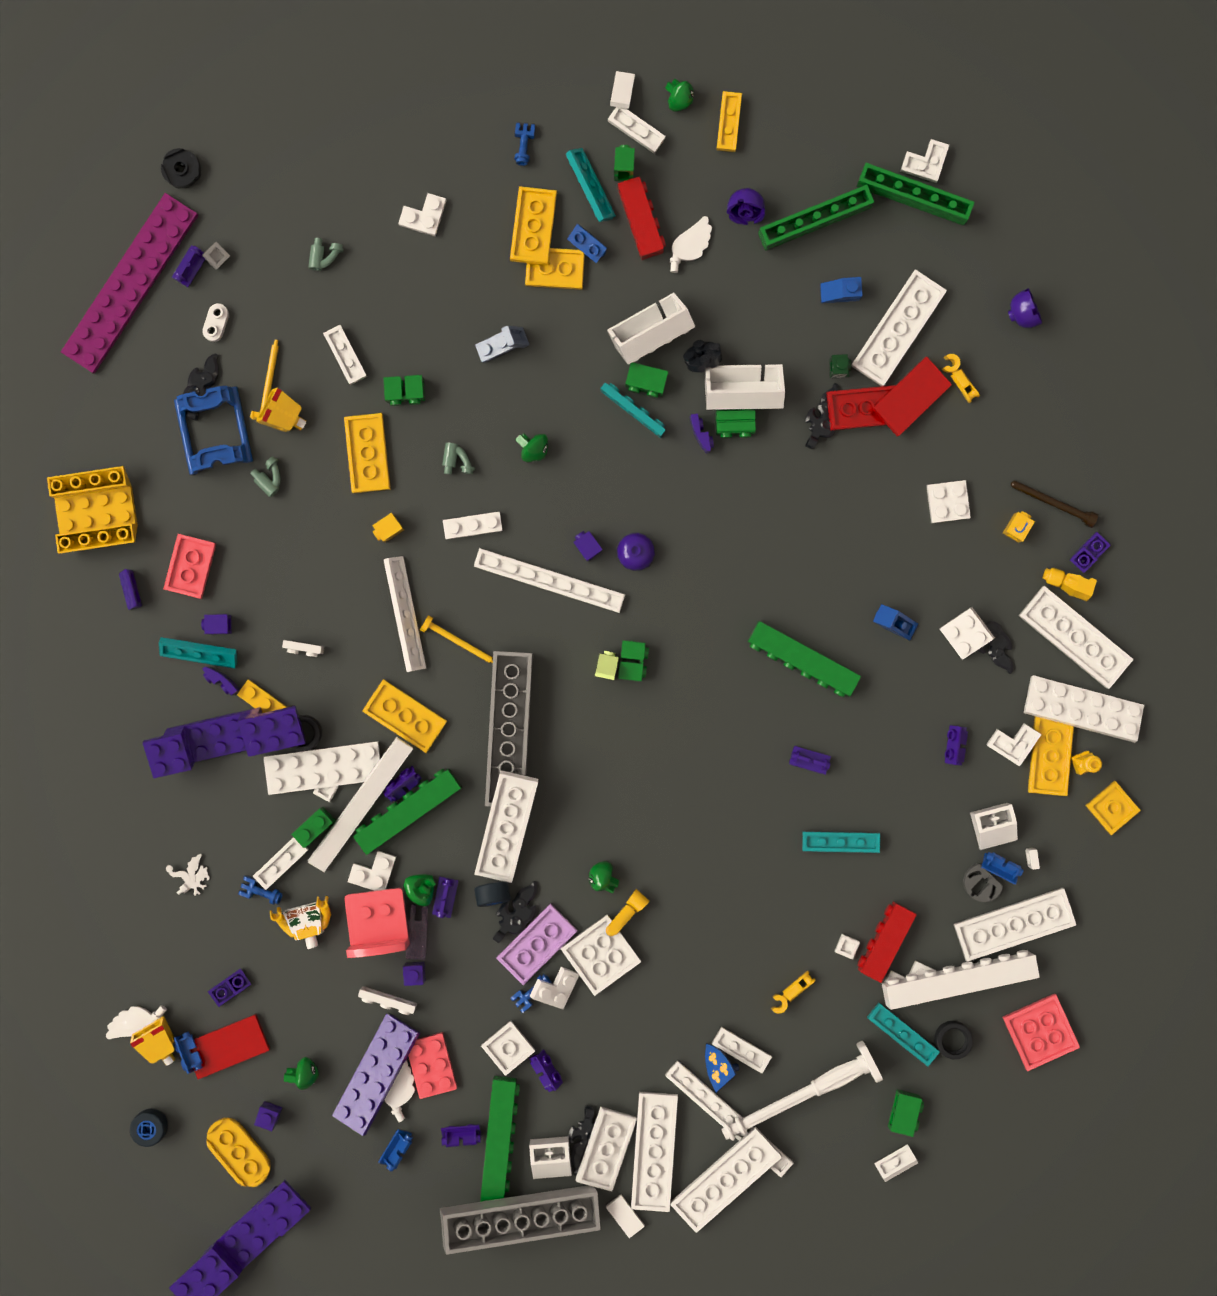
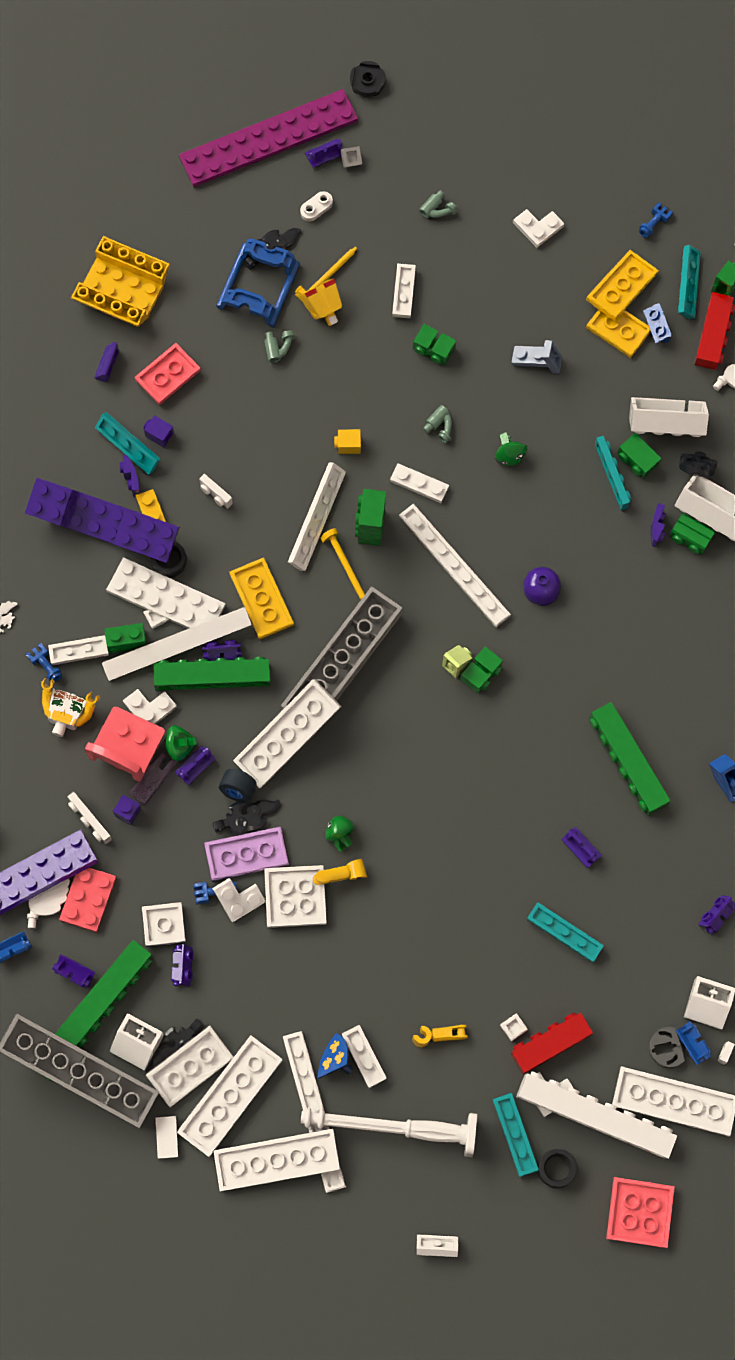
camera: 30 degrees right, 15 degrees down
(367, 453) = (370, 376): yellow tile -> none
(453, 589) = (370, 517): none -> green brick
(587, 545) = (504, 555): dark purple brick -> none
(905, 1113) = (473, 1205): green brick -> none

